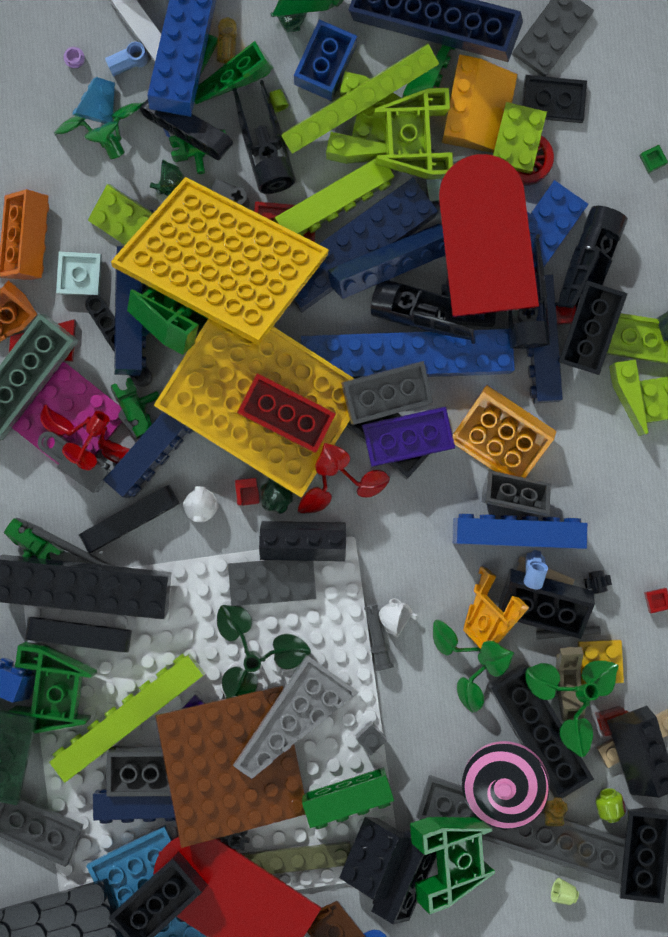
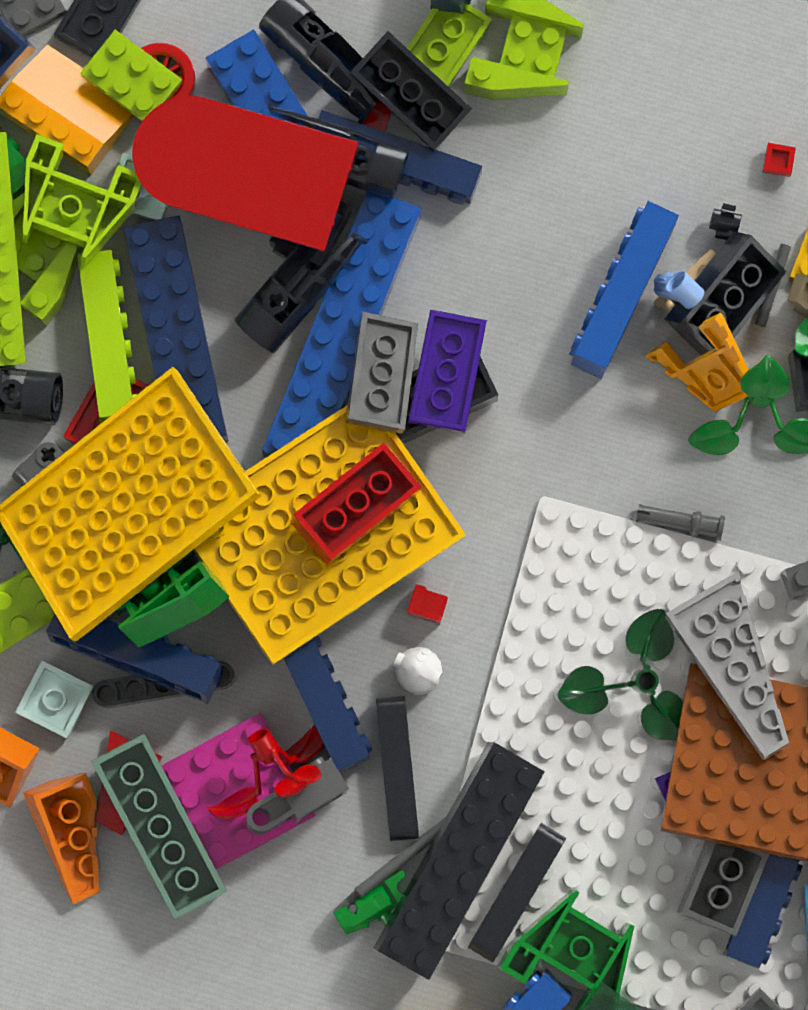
camera: 60 degrees left, 5 degrees down
(127, 717) = (648, 874): lime brick -> none
(133, 408) = (262, 704): green piece -> none
(271, 581) = (553, 620): dark grey plate -> none
(275, 497) = (450, 571): clear green helmet -> none
(302, 541) = (520, 559): black slope -> none
(329, 463) = (439, 474): red plant -> none
(387, 262) = (217, 302): dark blue brick -> none
(395, 616) = (662, 486): white helmet -> none
(503, 434) = (495, 257): light orange slope -> none
(517, 493) = (574, 271): dark grey slope -> none

